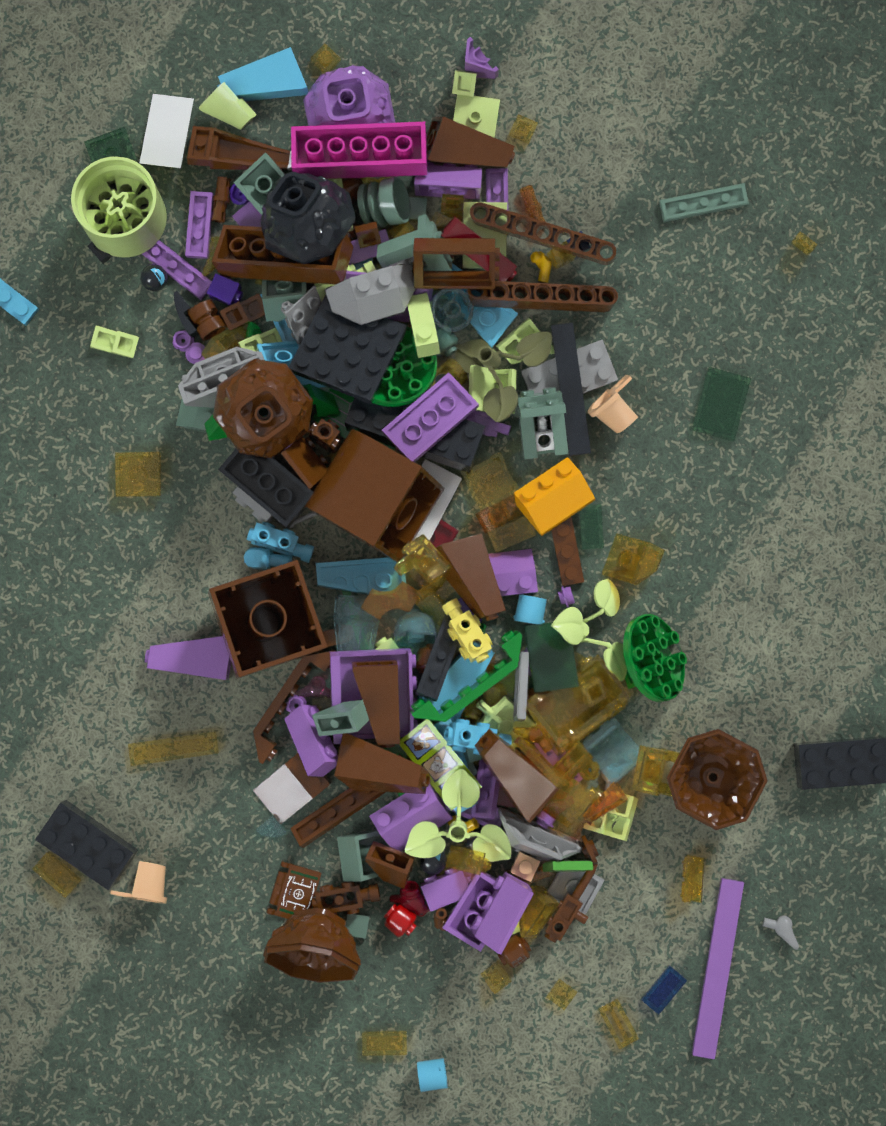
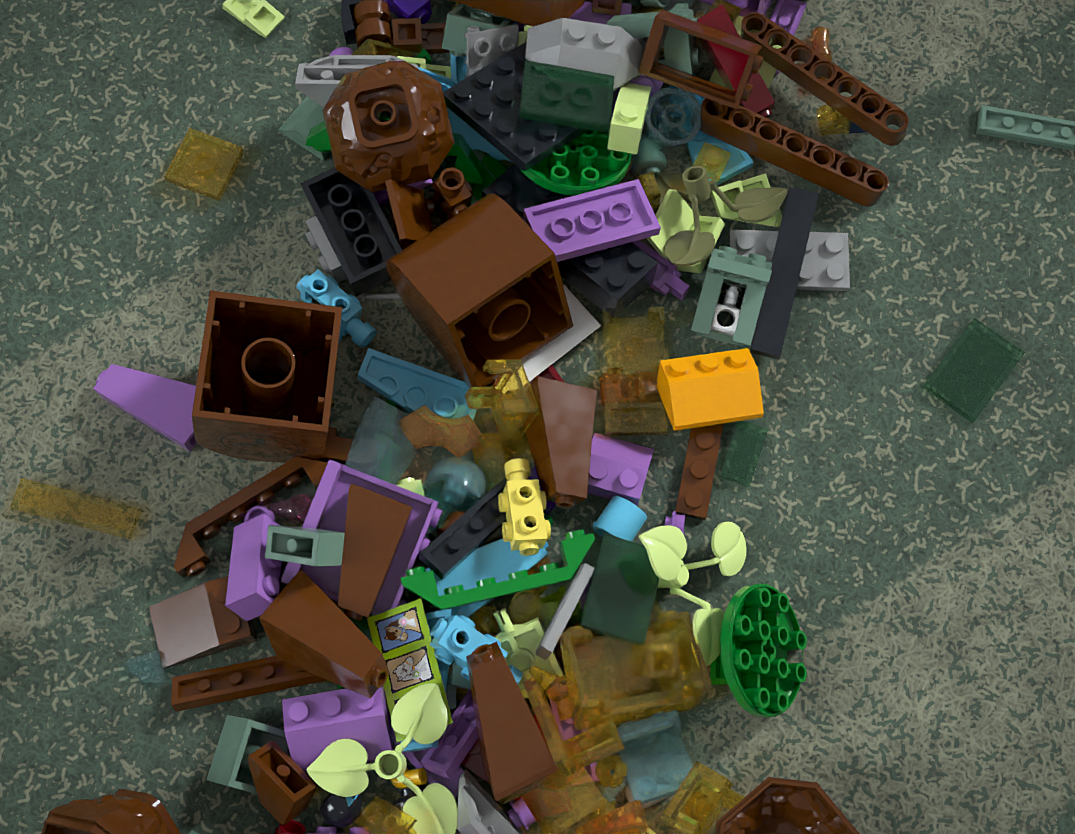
camera: 20 degrees right, 15 degrees down
(178, 336) = (330, 34): medium lavender plate -> none
(293, 890) = (136, 764): reddish brown piece -> none
(340, 899) = (192, 804): reddish brown brick -> none
(376, 335) = (566, 96): none -> clear green tile
(489, 327) = (713, 160): none -> clear yellow plate
(543, 264) = (807, 118): yellow arm -> none
(612, 408) = (831, 316): light nougat container -> none
(632, 559) = (784, 513): clear yellow slope -> none

